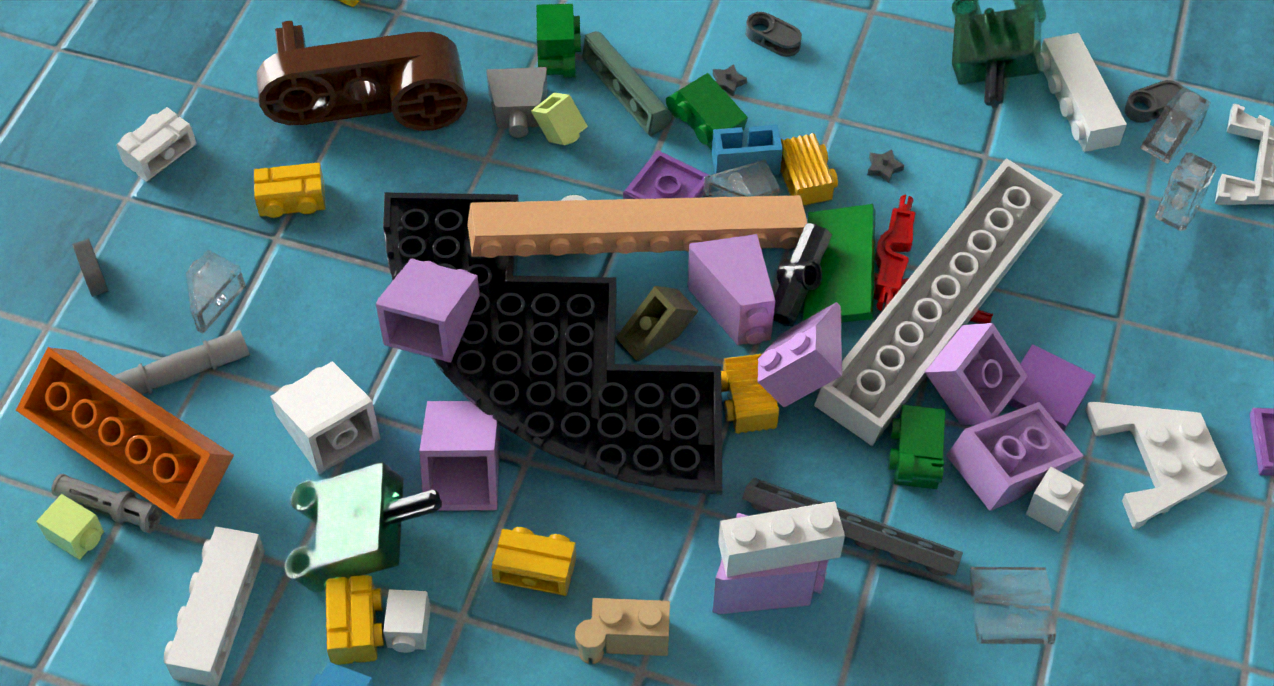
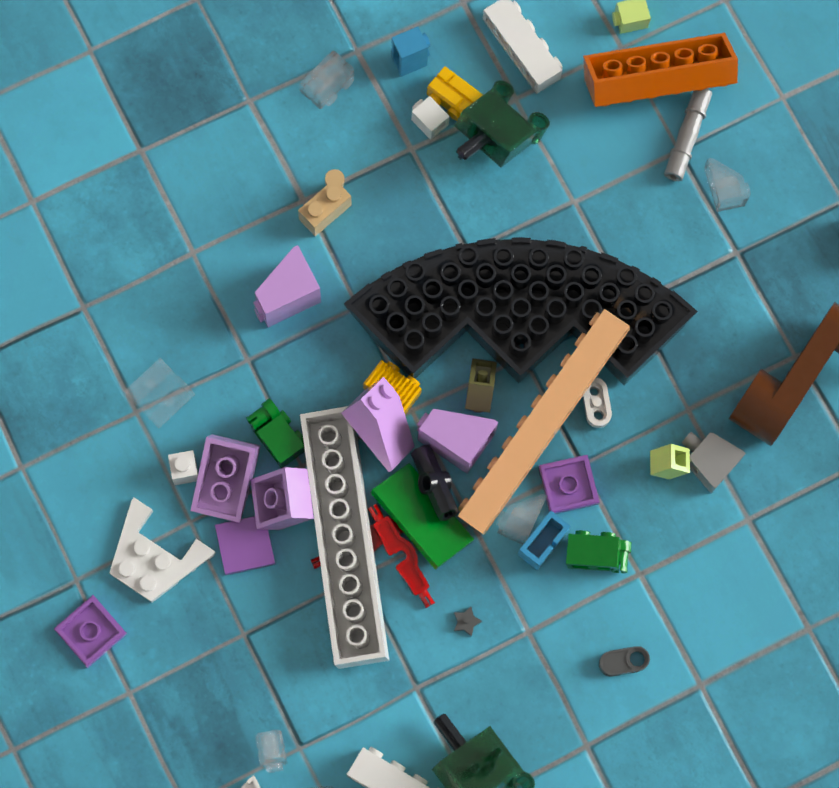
camera: 130 degrees right, 20 degrees up
(90, 267) = (800, 140): dark grey beam -> none
(121, 506) = (640, 39): light grey pin -> none
(289, 189) = (760, 279): yellow brick -> none
(327, 416) = (584, 172): white slope -> none
(427, 309) = (586, 254): lavender slope -> none
(460, 455) = (497, 213): lavender slope -> none
(534, 561) = (403, 199): yellow brick -> none
(557, 38) = (738, 522): green hinge -> none
(625, 83) = (667, 533): sand green brick -> none
(729, 79) = (615, 599): dark grey piece -> none
(781, 539) = (281, 282): white brick -> none
(807, 170) = (502, 566): yellow brick -> none
(865, 531) = (271, 359): dark grey plate -> none

